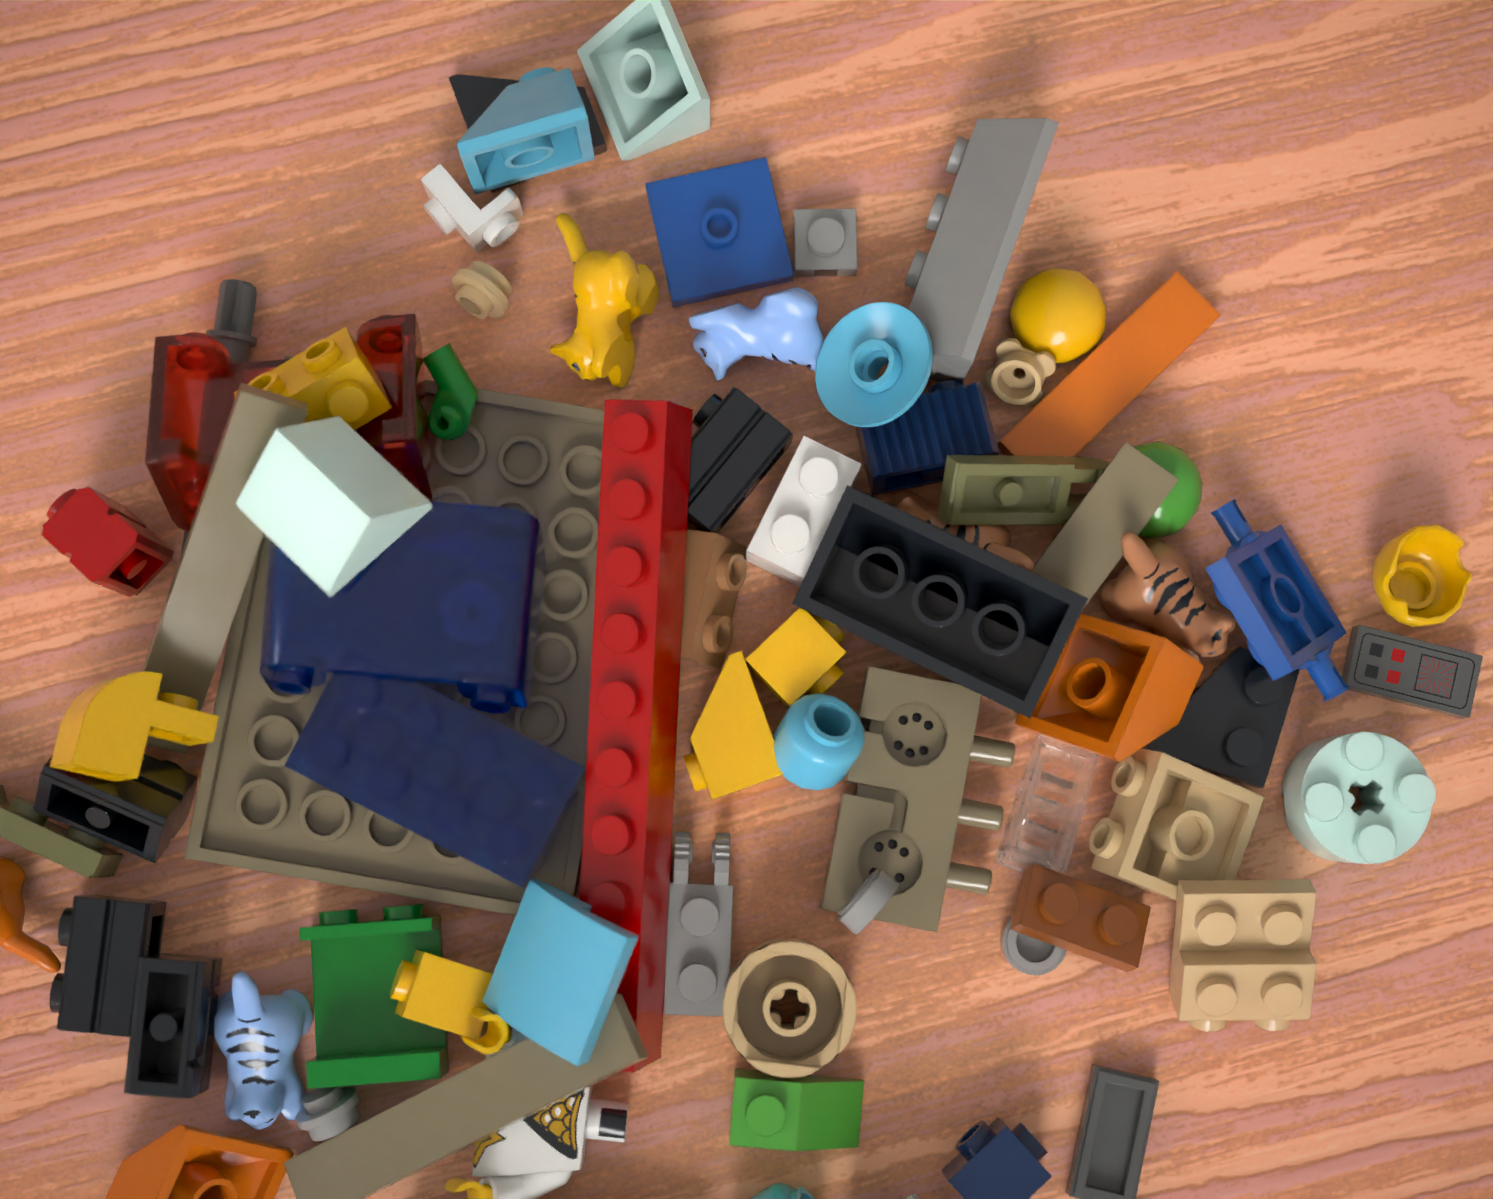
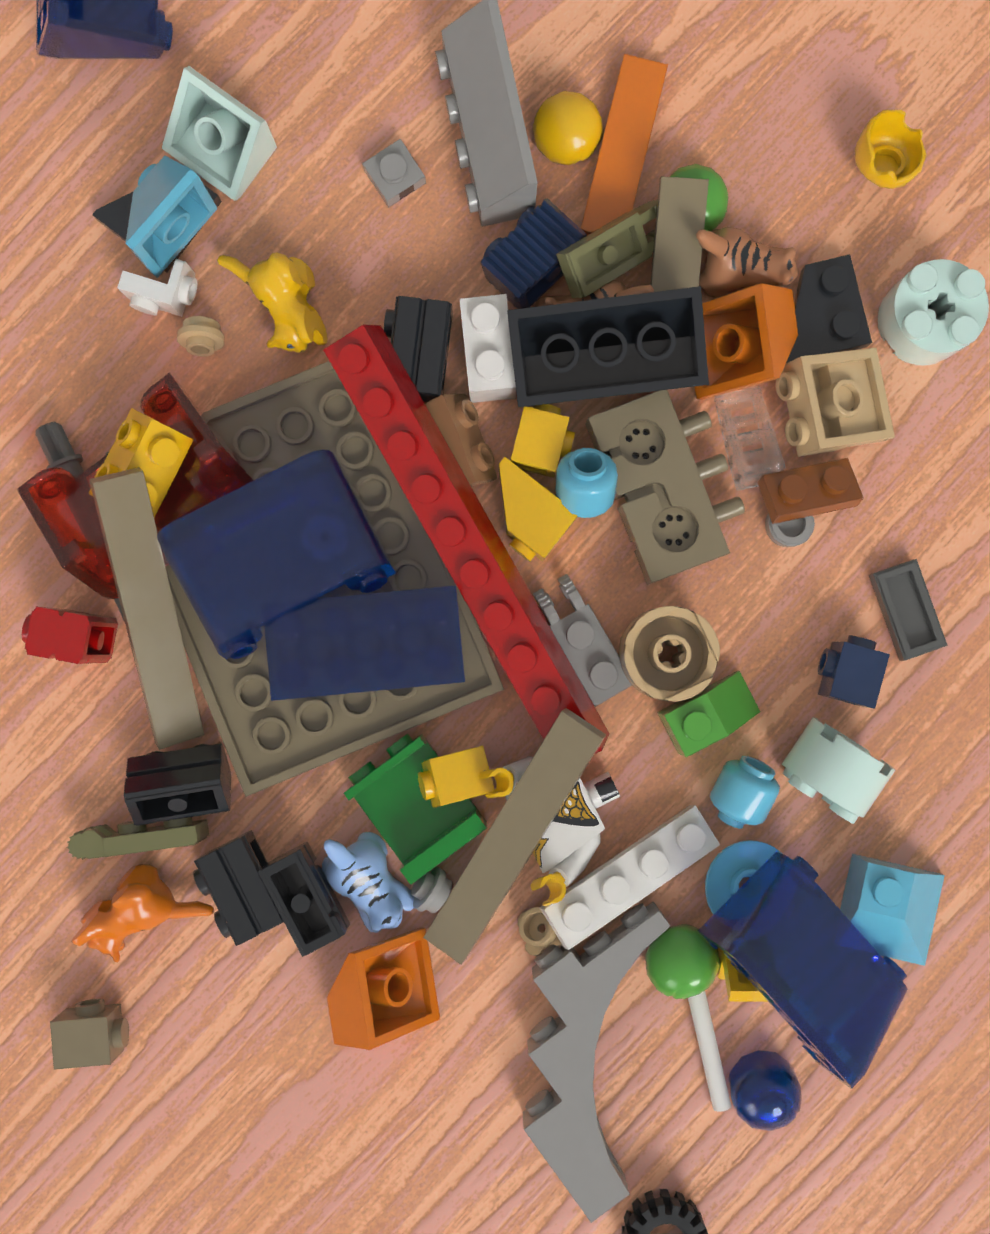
camera: 30 degrees left, 5 degrees up
(111, 720) = (148, 738): yellow brick -> none
(329, 500) = (192, 518): light aqua slope -> none
(455, 395) = (227, 411): green arm -> none
(559, 972) = (519, 718): medium azure slope -> none
(719, 232) = (324, 207): blue plate -> none
(778, 329) = (400, 244): light blue animal -> none
(858, 350) = (459, 223): medium azure dish -> none
(867, 901) = (678, 559): light grey tile -> none
(1014, 387) = (567, 191): tan plate -> none
(1243, 952) = (921, 449): tan plate -> none
(1276, 602) = (812, 221): blue plate -> none
(1411, 671) = (918, 215): dark grey tile -> none

